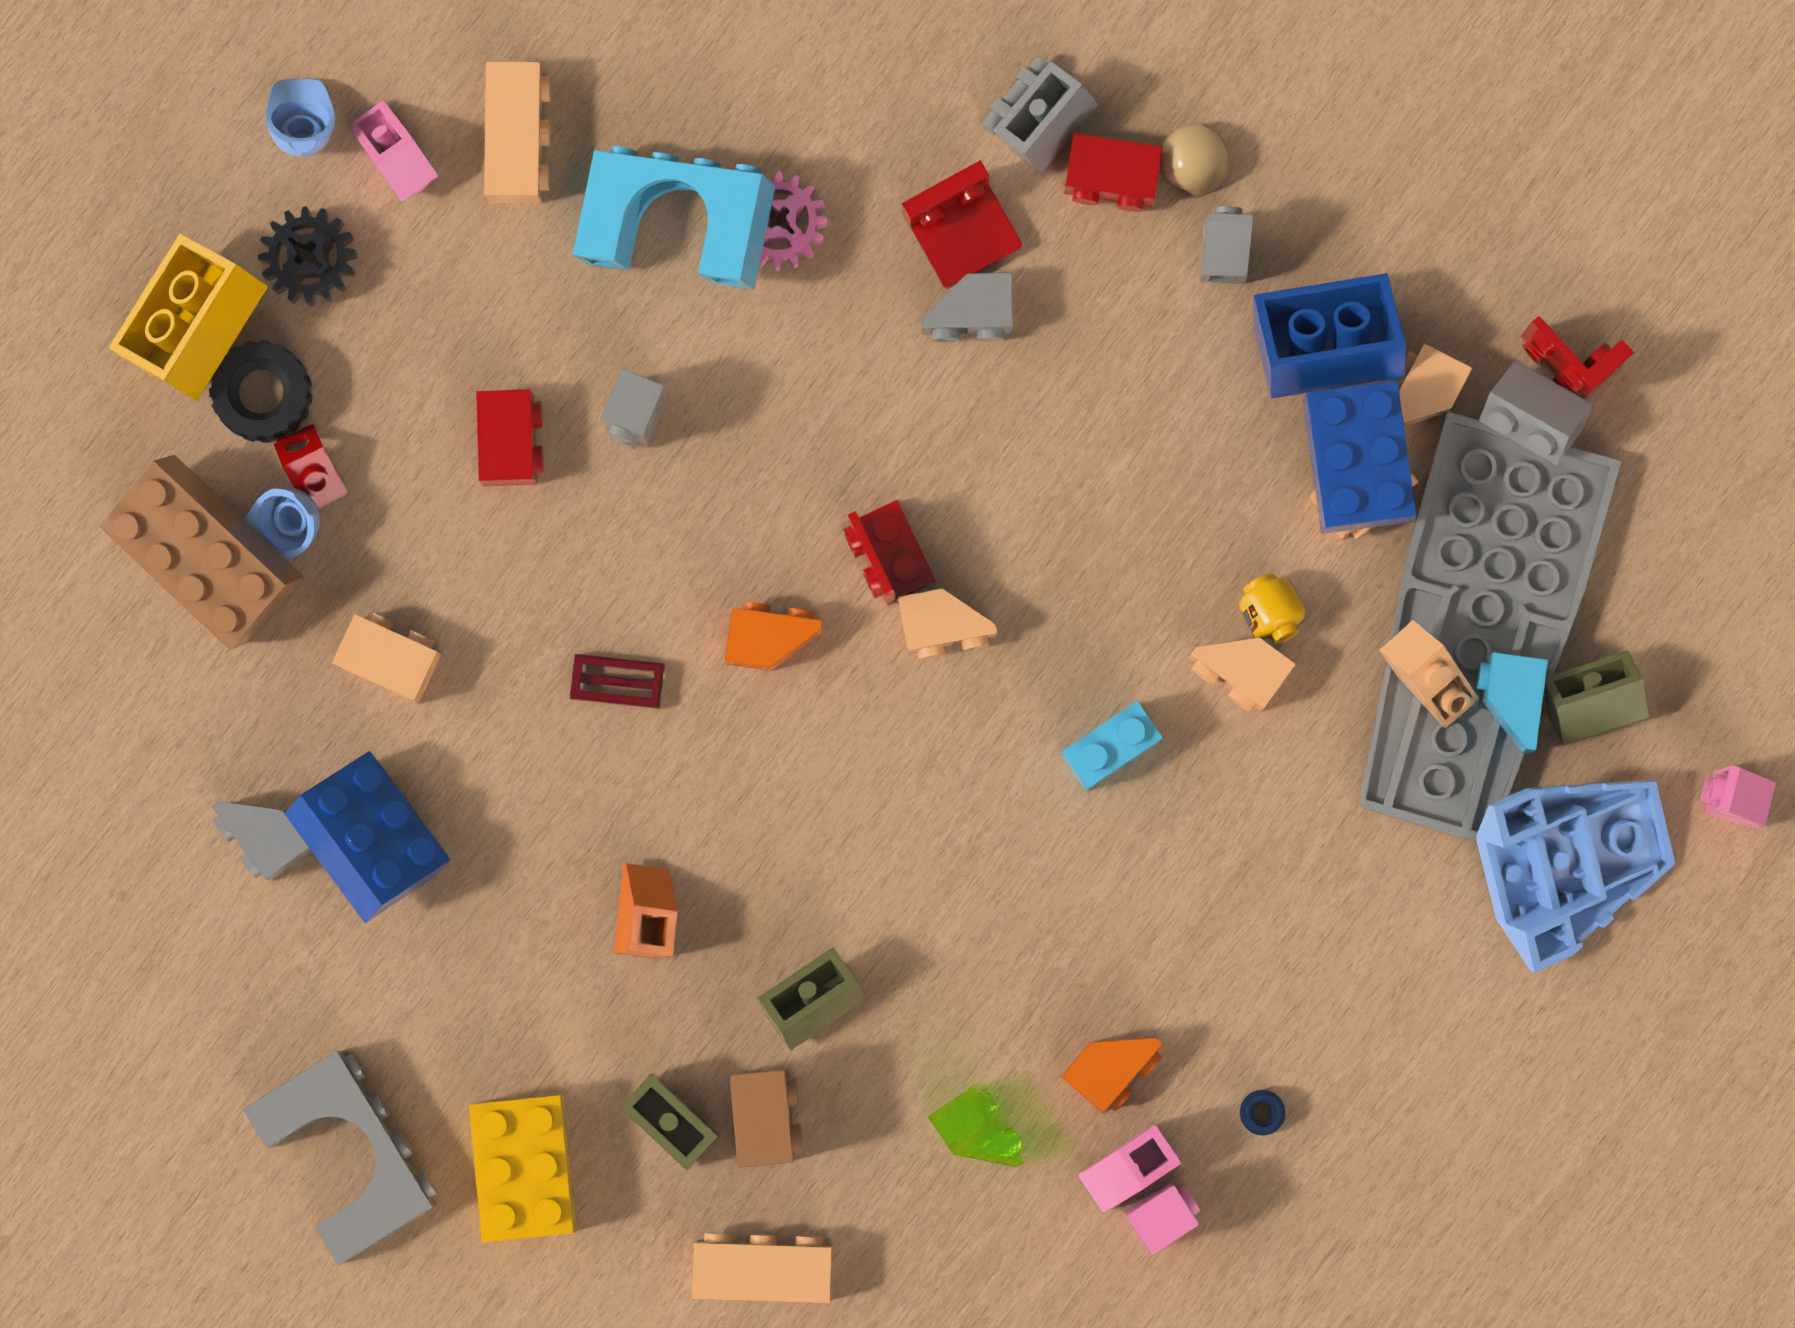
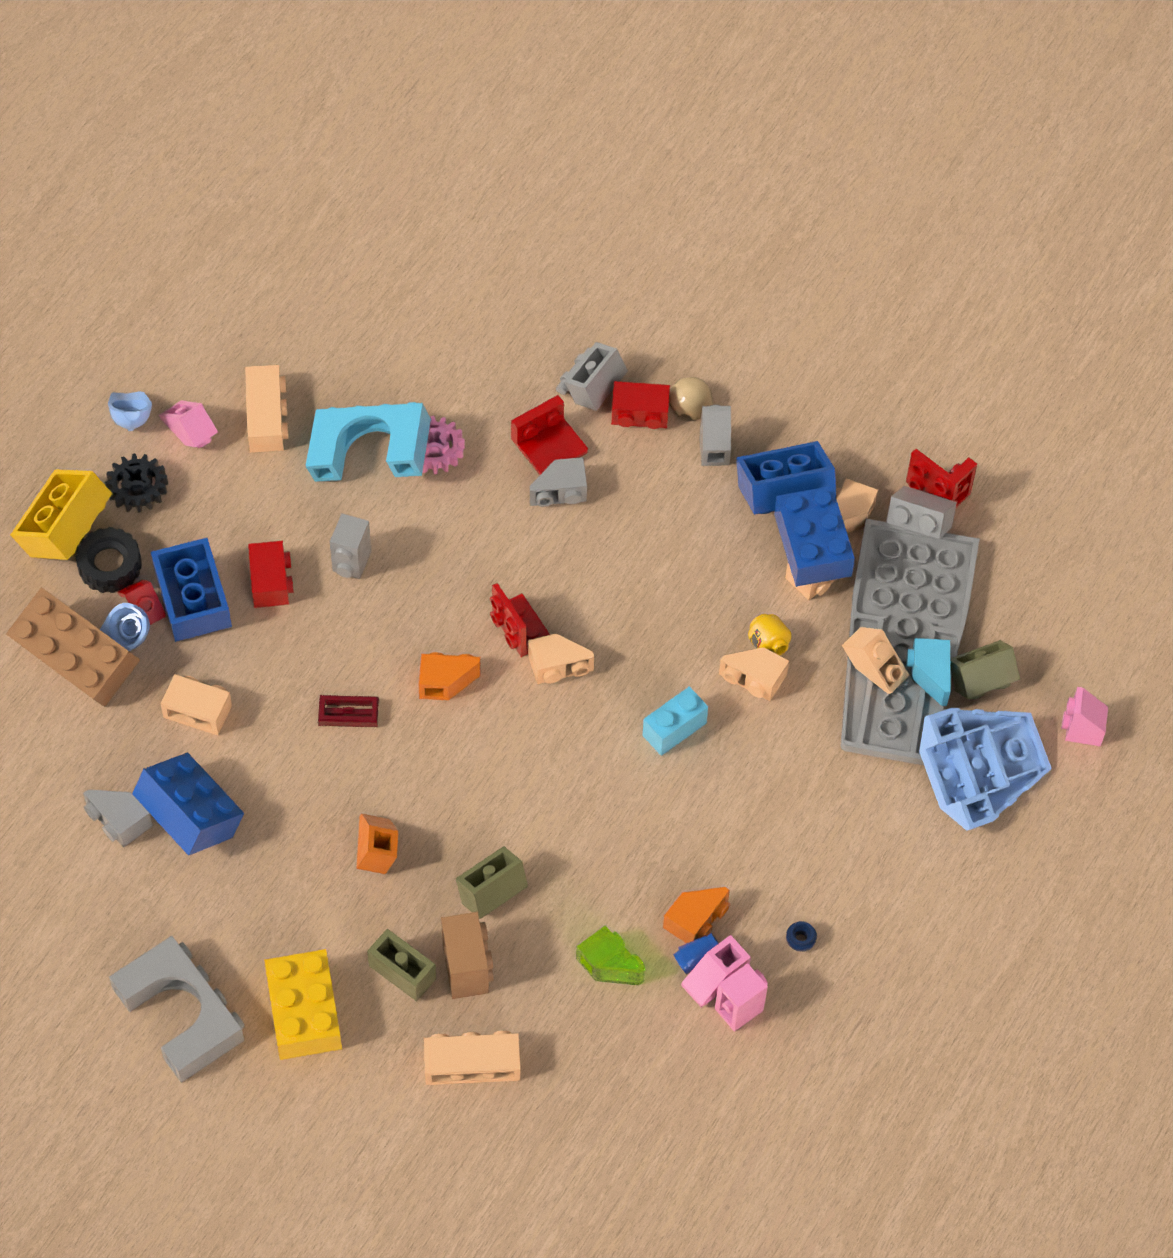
camera: 10 degrees left, 25 degrees down
(385, 462) = (191, 589): none -> blue brick
(1104, 1133) = (691, 953): none -> blue cone

